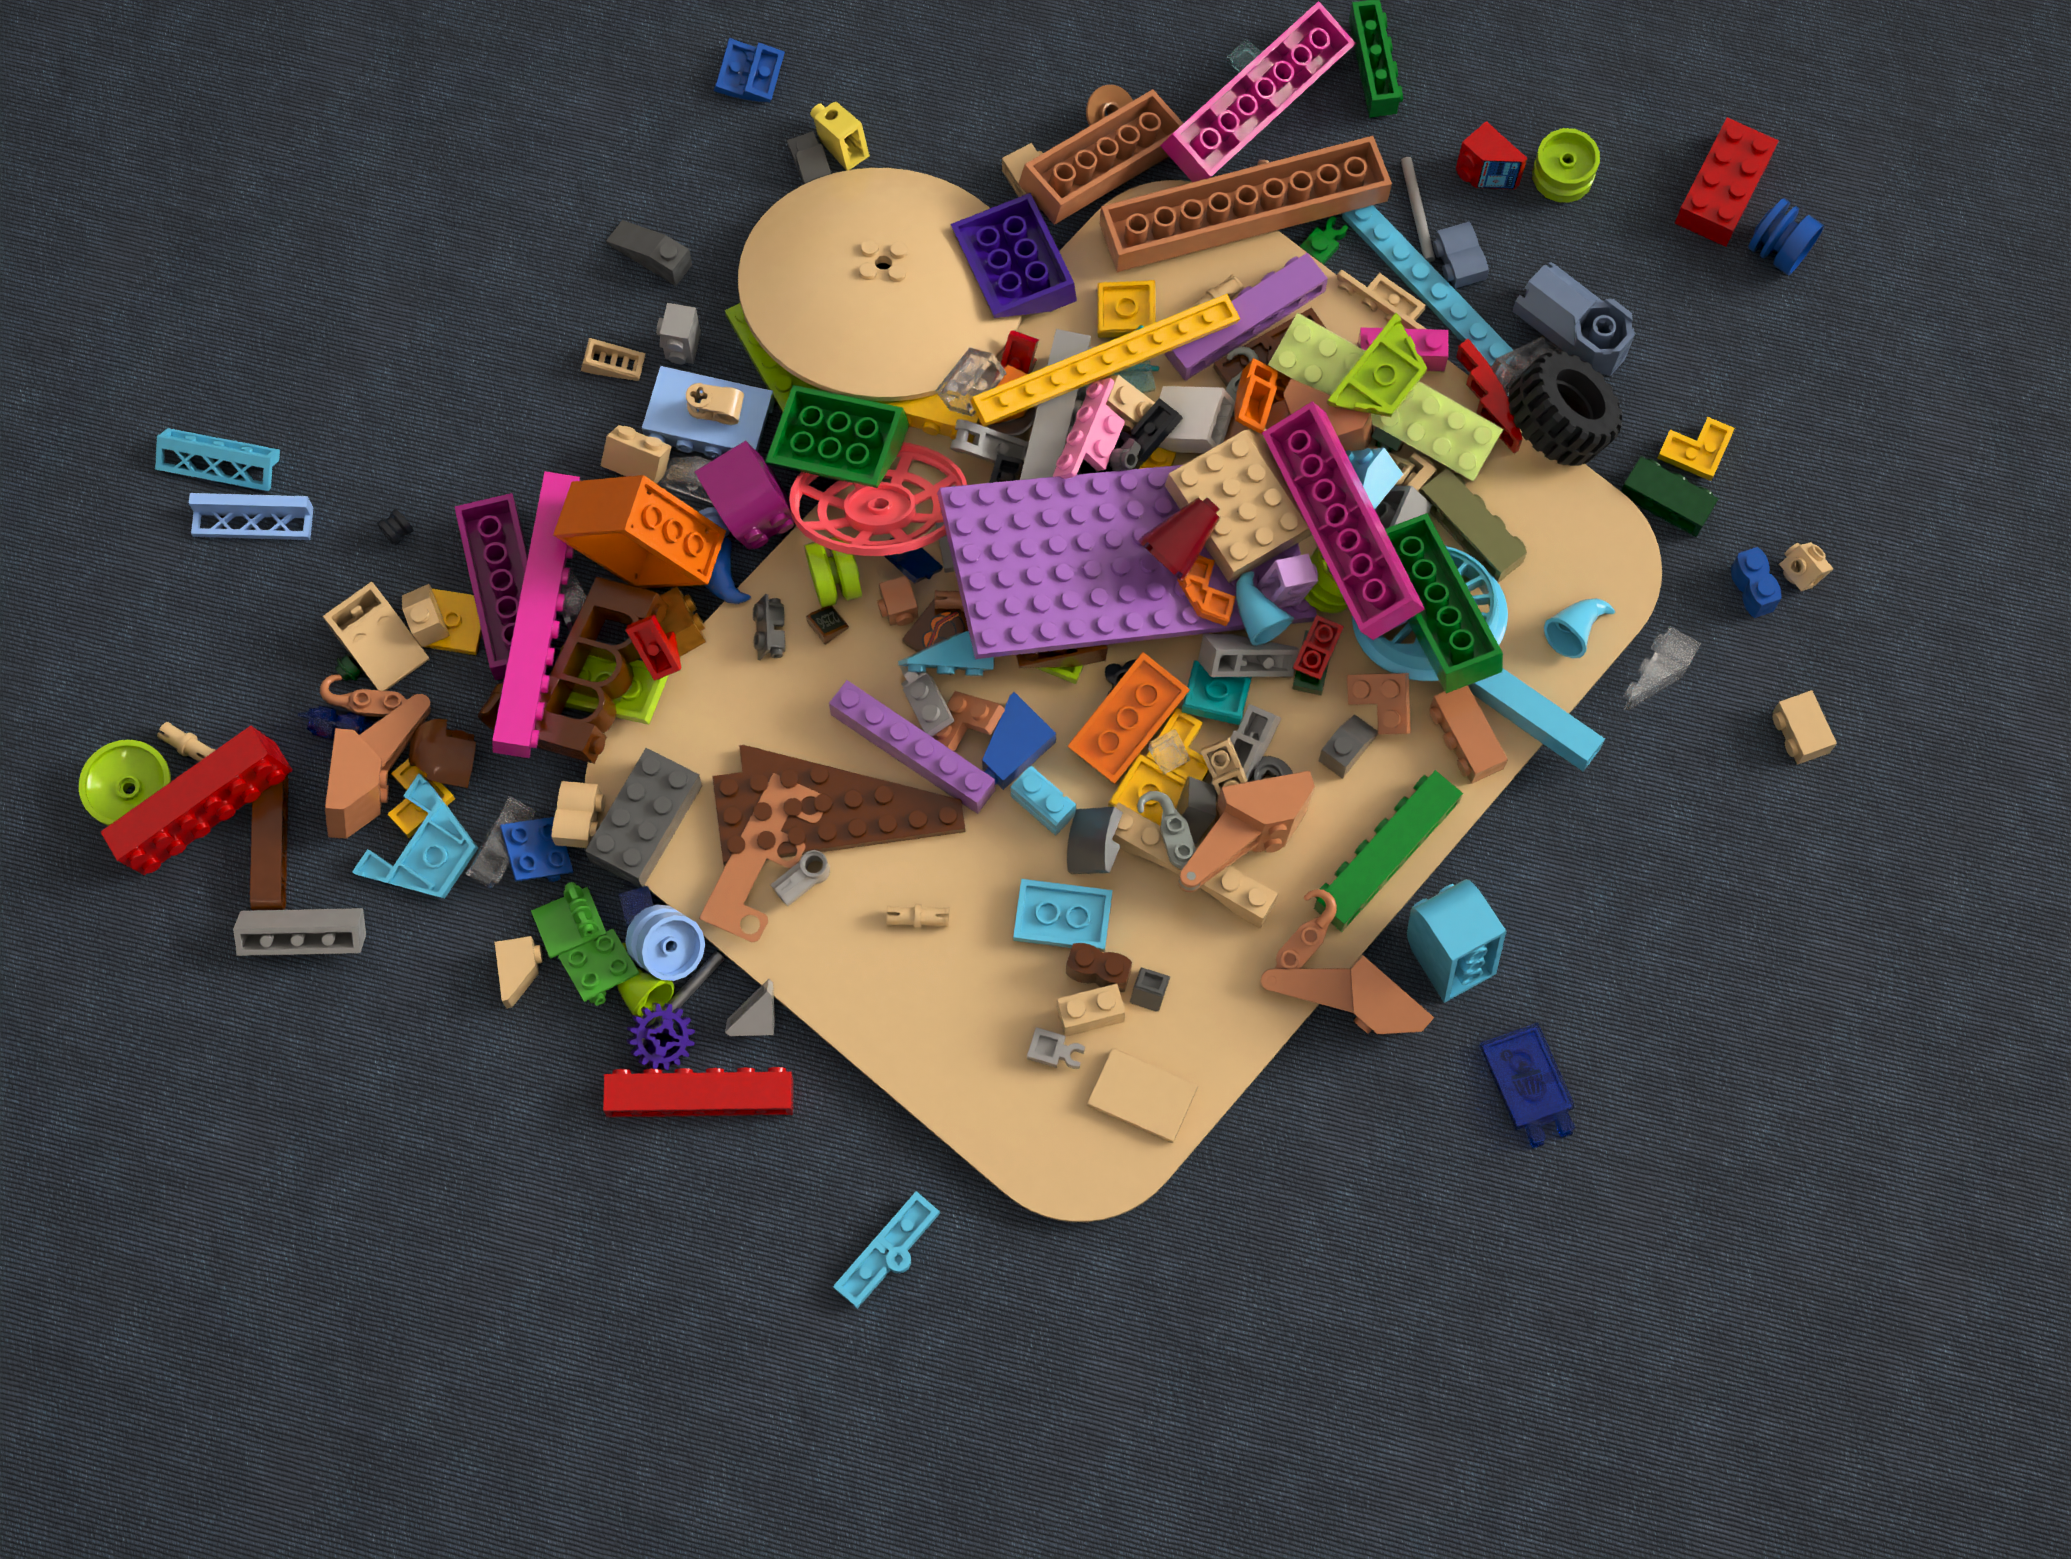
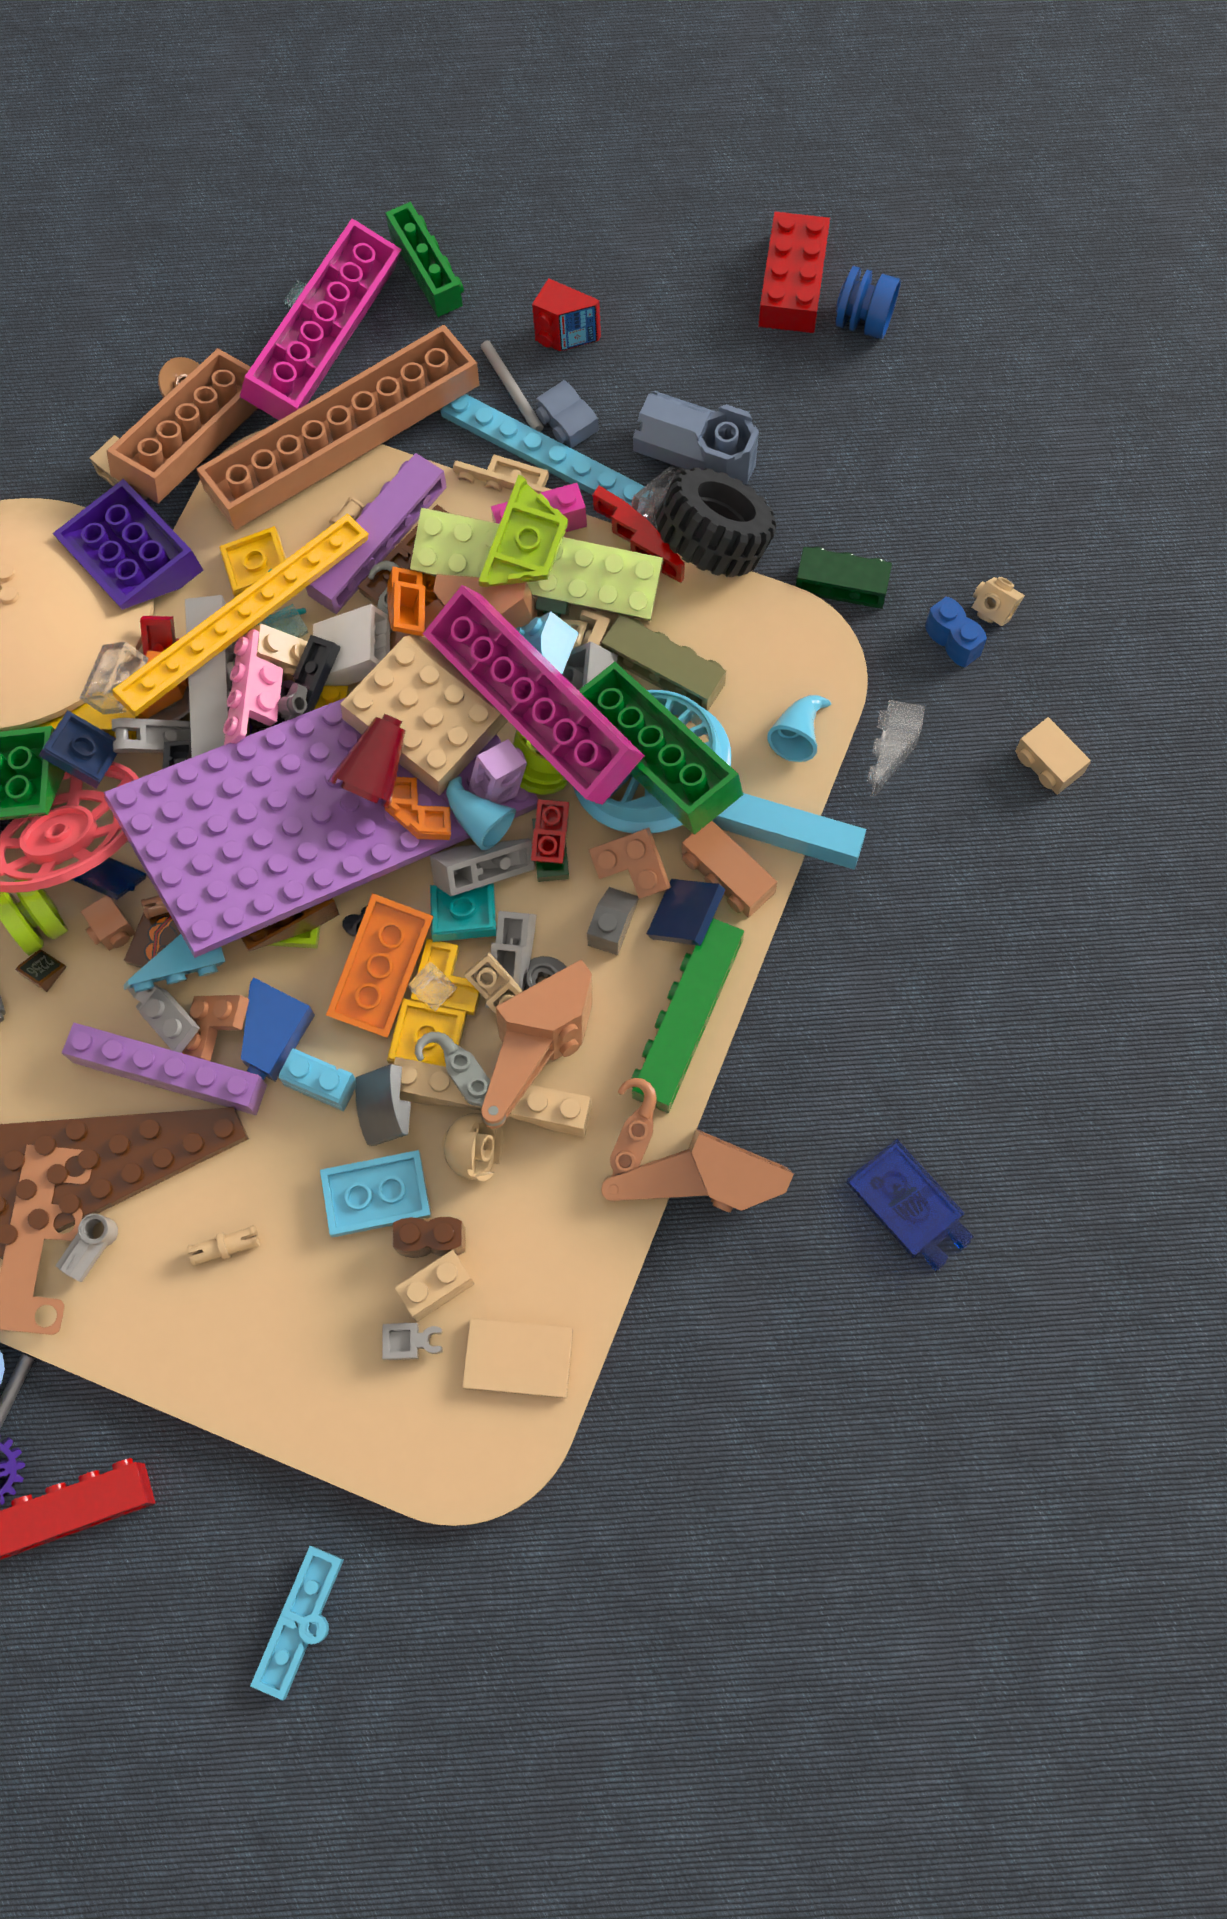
camera: 15 degrees left, 0 degrees up
(755, 1015) = (83, 1411): light grey slope -> none
(922, 437) = (80, 749): none -> dark blue tile
(1149, 989) = (490, 1240): dark grey slope -> none
(1160, 903) = (473, 1147): none -> tan cylinder
(1197, 806) = (479, 1034): dark grey slope -> none
(1323, 243) = (432, 444): green plate -> none
(1416, 759) = (686, 912): none -> dark blue tile
(1456, 938) = (787, 1081): medium azure brick -> none
(1565, 165) = (638, 301): lime wheel -> none
(1698, 456) = (858, 531): yellow plate -> none

